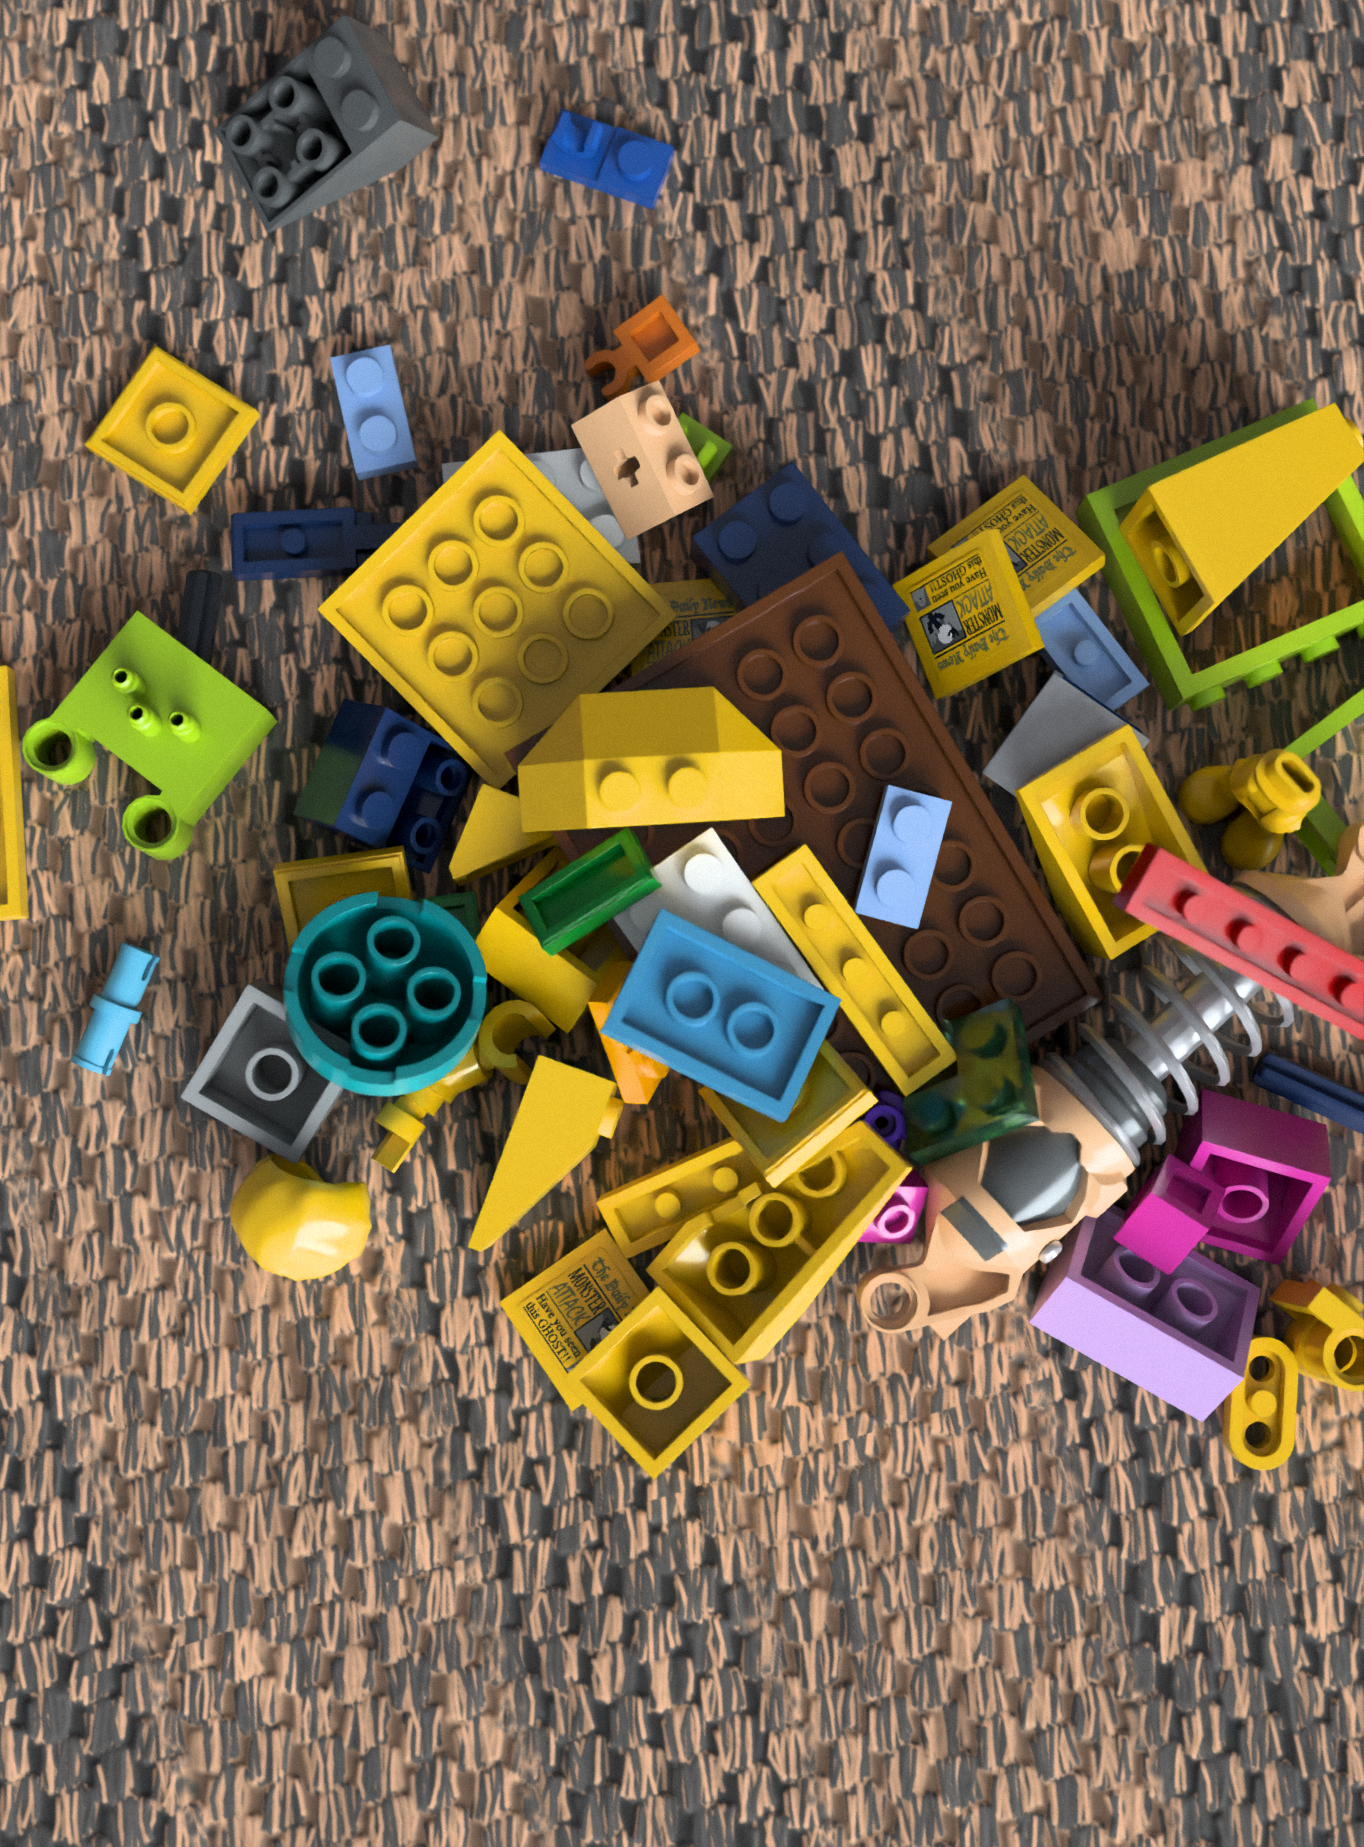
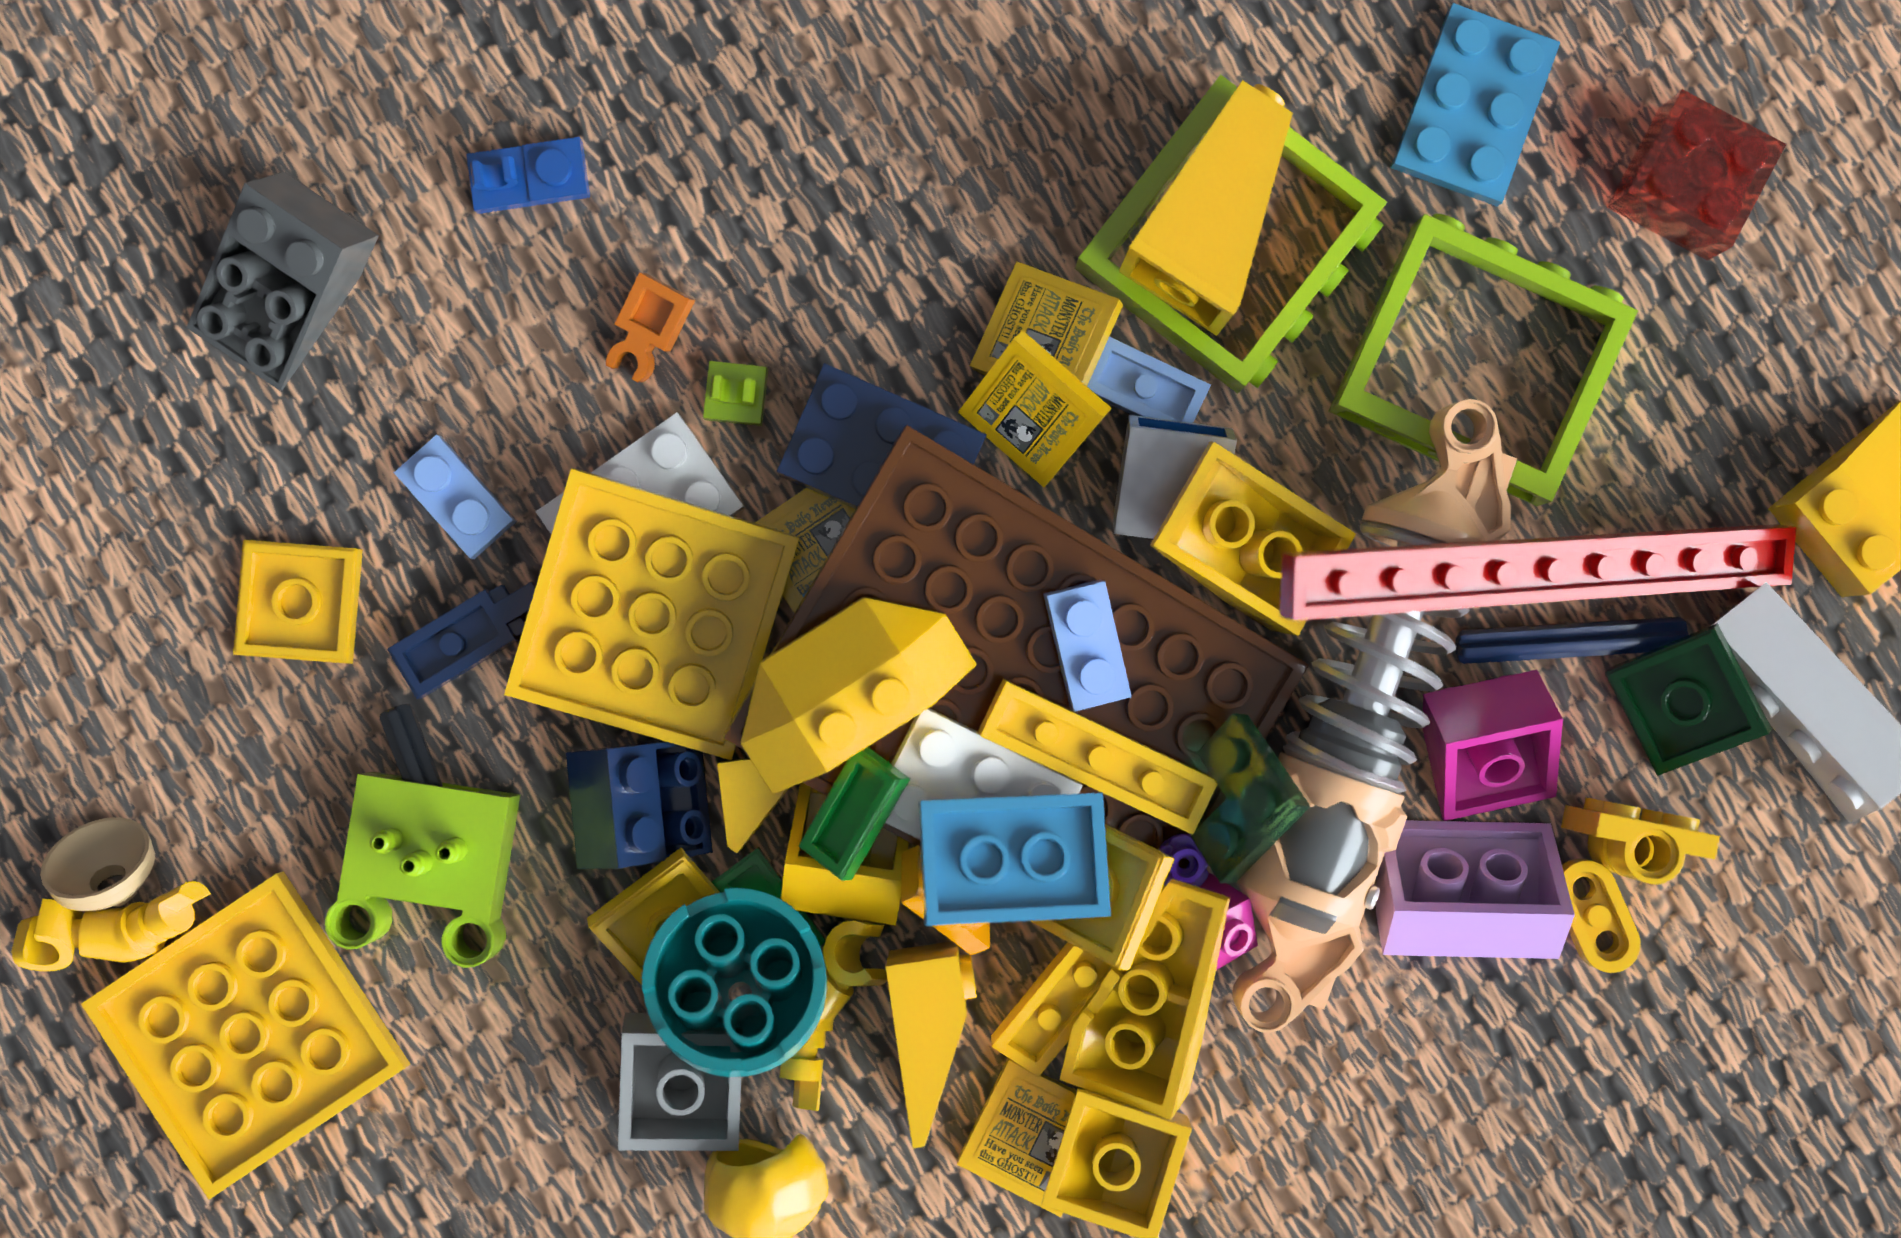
camera: 25 degrees left, 5 degrees up
(115, 1009) = (522, 1099): medium azure pin -> none
(642, 459) = (701, 426): light nougat brick -> none
(1169, 1214) = (1449, 812): dark pink brick -> none
(1276, 795) = (1353, 434): yellow piece -> none

